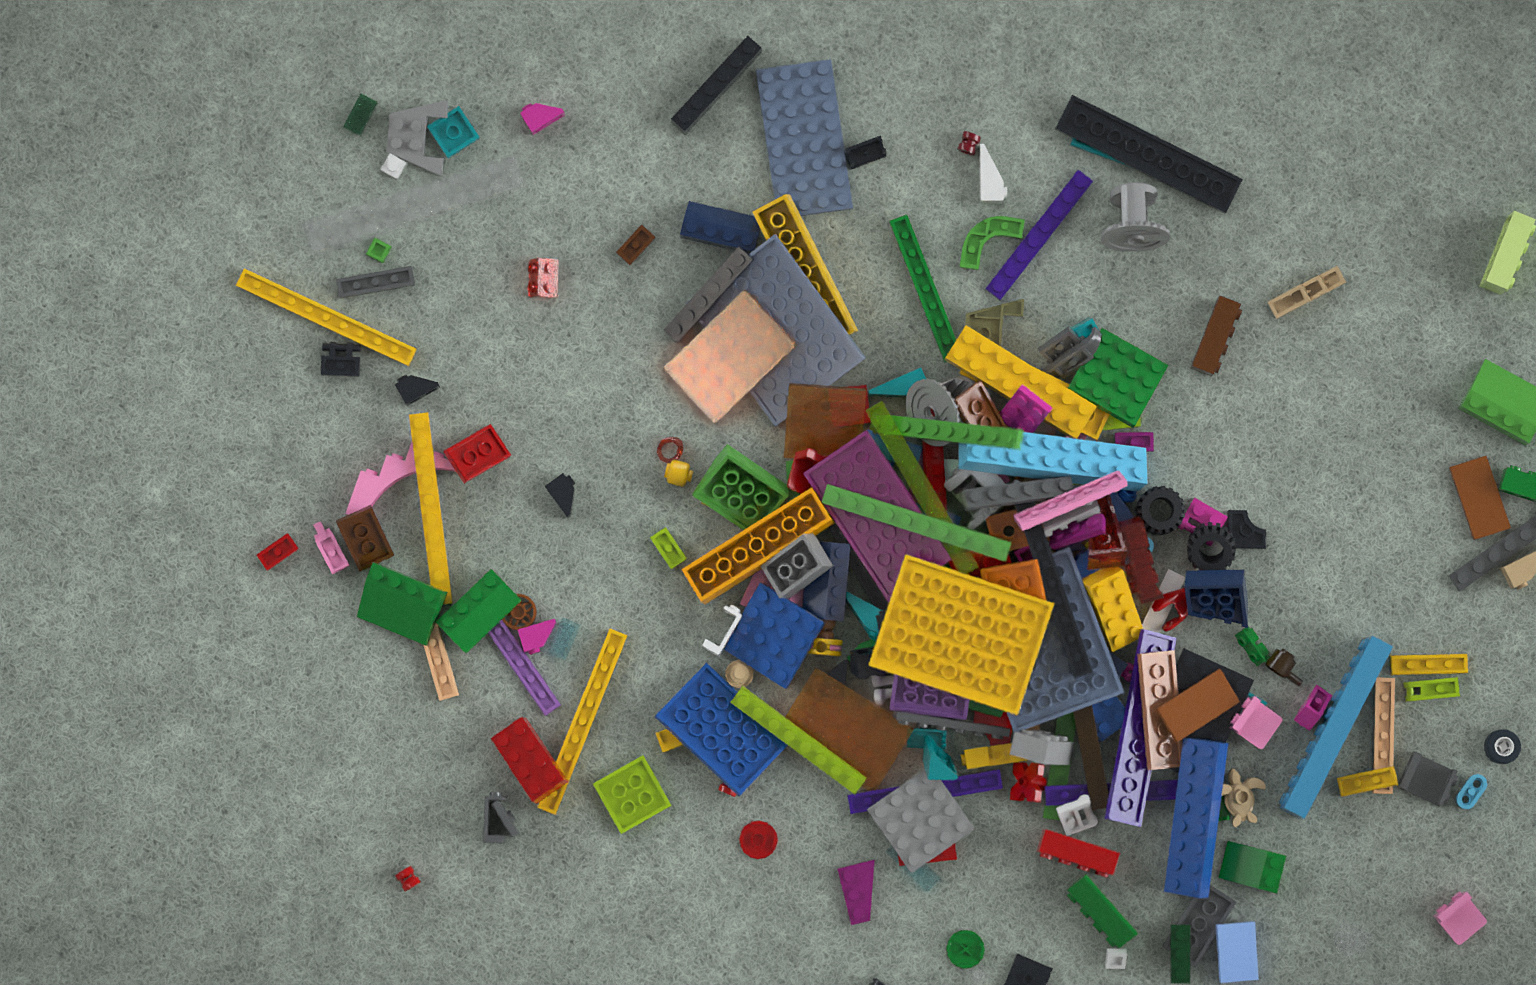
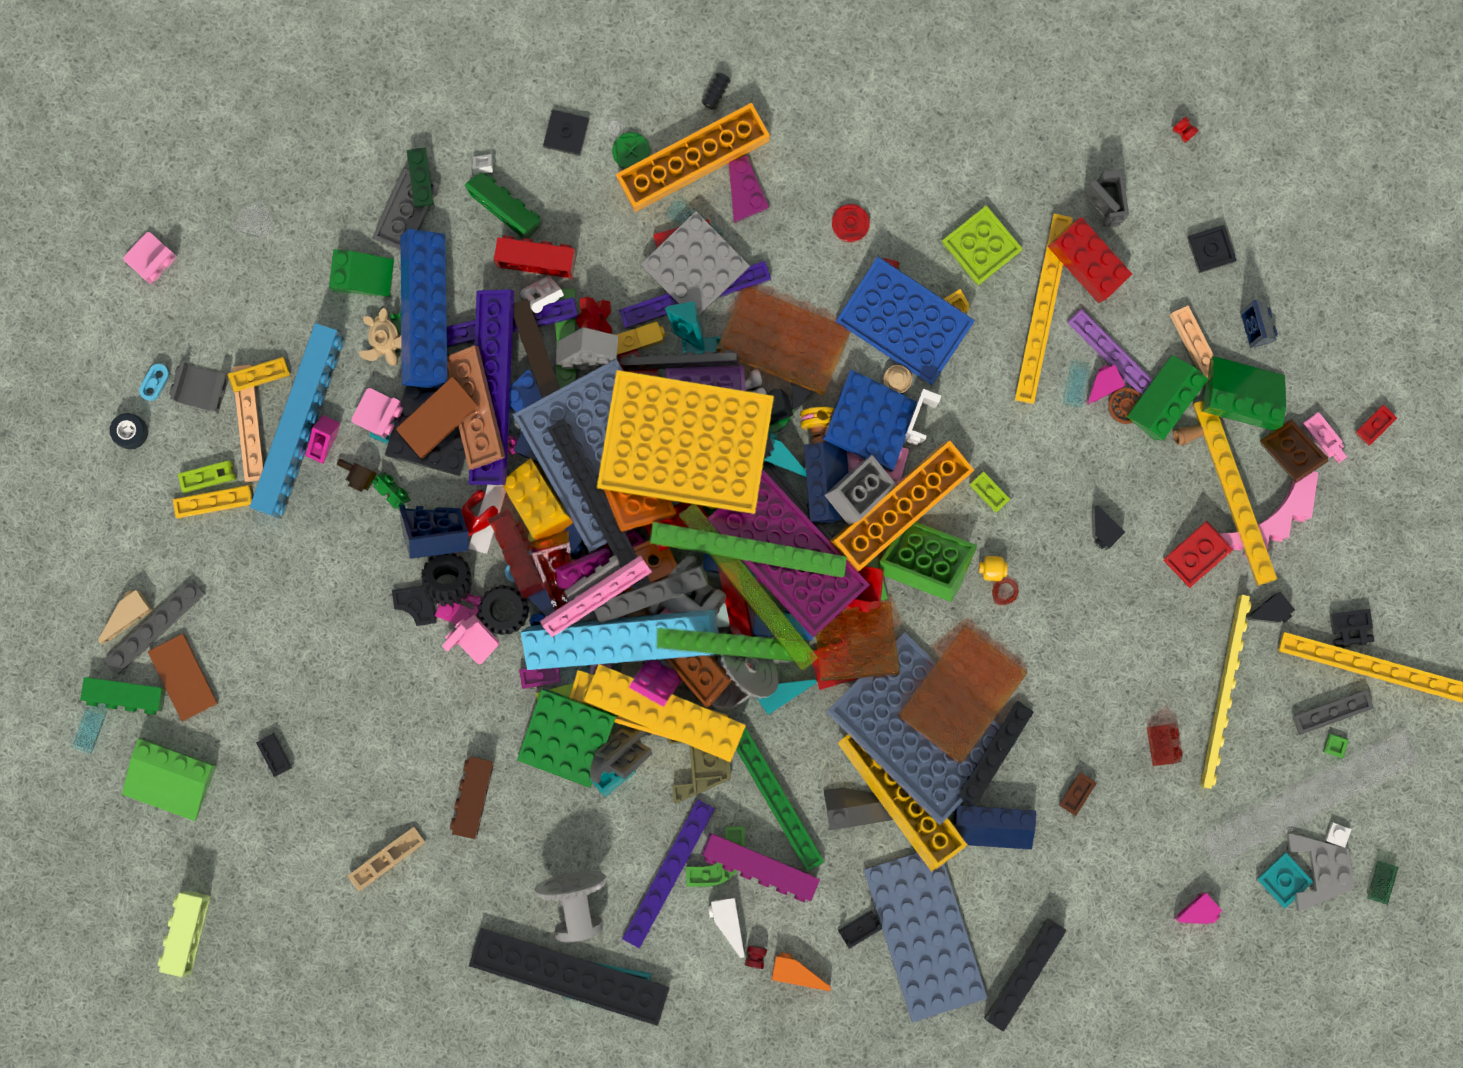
camera: 170 degrees right, 0 degrees up
(373, 668) = (1258, 324): none -> dark blue slope
(404, 754) = (1211, 249): none -> black plate
(464, 573) = (1184, 435): none -> medium nougat cone
(472, 325) = (1224, 700): none -> light yellow plate
(798, 740) = (828, 322): lime plate -> none
(853, 266) = (853, 808): none -> dark grey wedge
(905, 929) = (693, 157): none -> light orange brick
(934, 123) = (792, 971): none -> orange slope
(951, 225) = (759, 866): none -> magenta brick
(1193, 487) = (473, 638): none -> bright pink bracket
(1237, 952) = (365, 189): light blue tile -> none
(1401, 408) = (274, 755): none -> black plate

